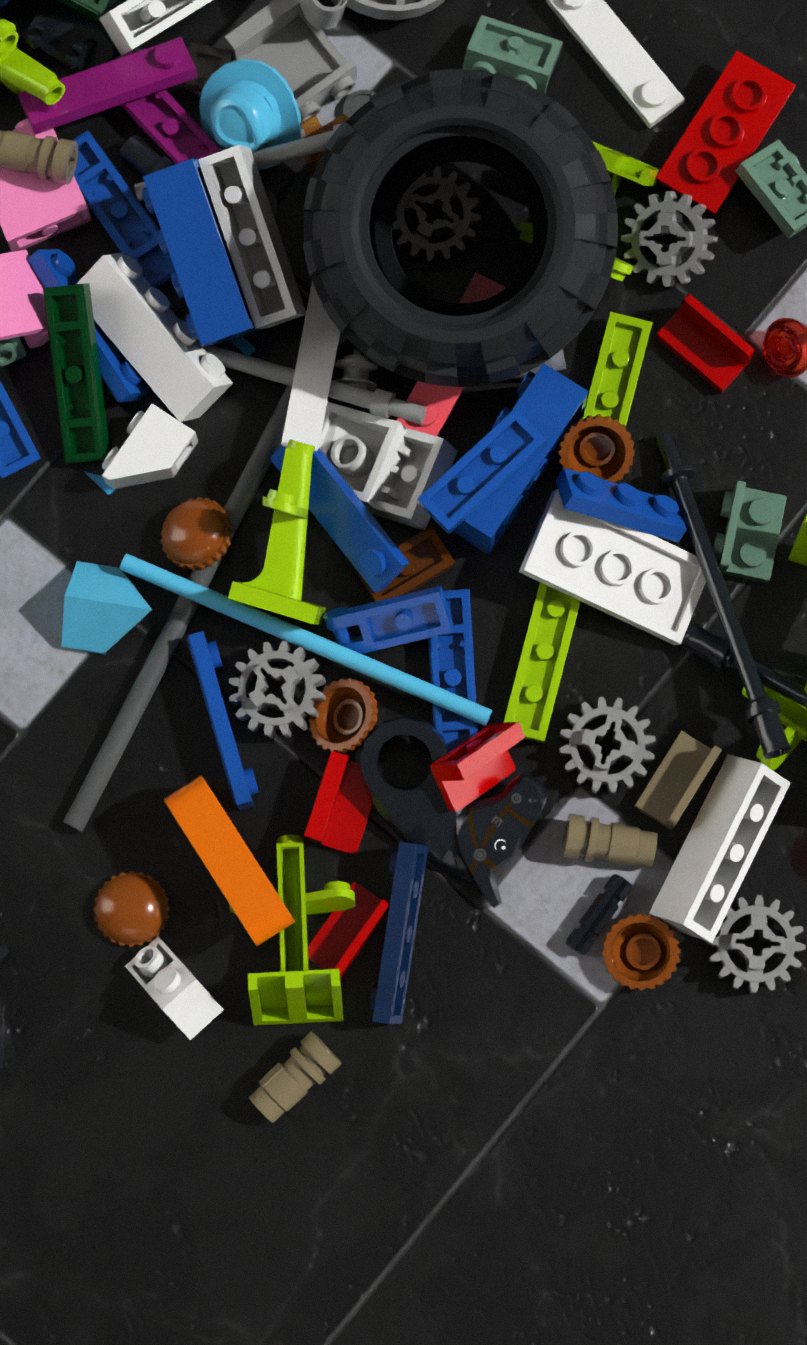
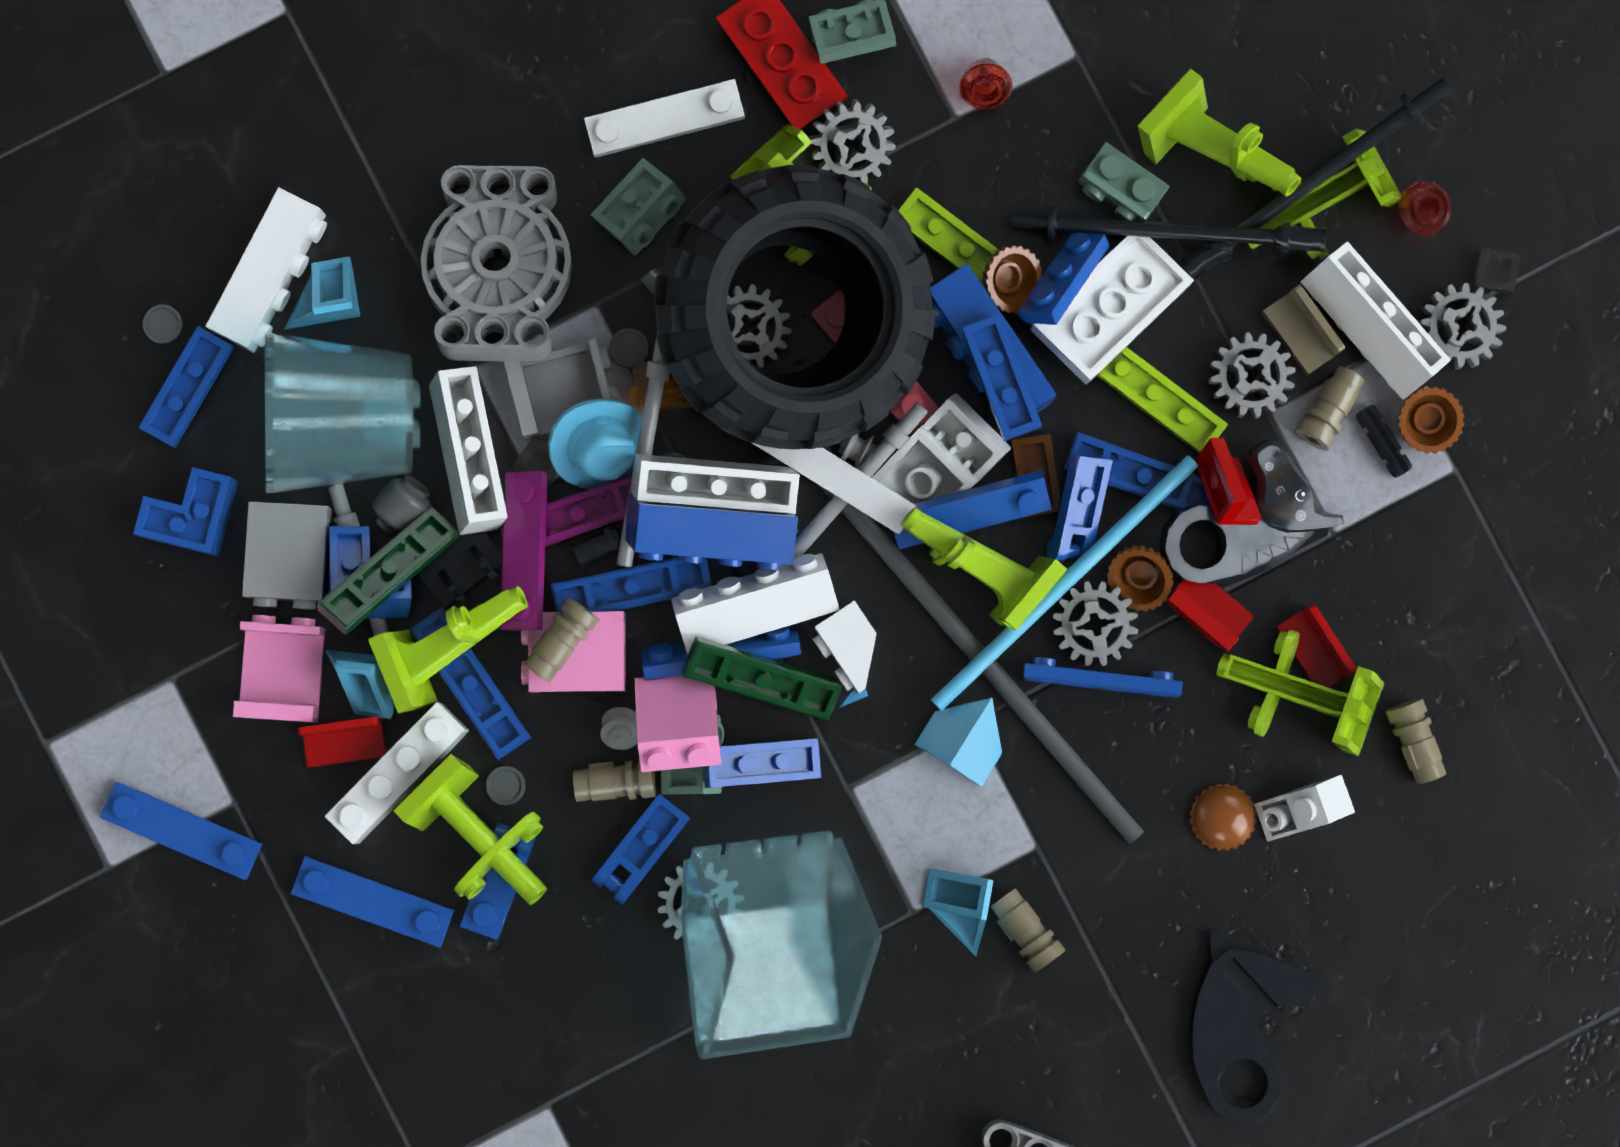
camera: 75 degrees left, 5 degrees up
(196, 534) = (935, 636): dark orange hat -> none
(229, 860) = (1228, 719): orange beam -> none
(389, 995) = (1382, 637): dark blue plate -> none
(705, 344) = (951, 152): red panel -> none

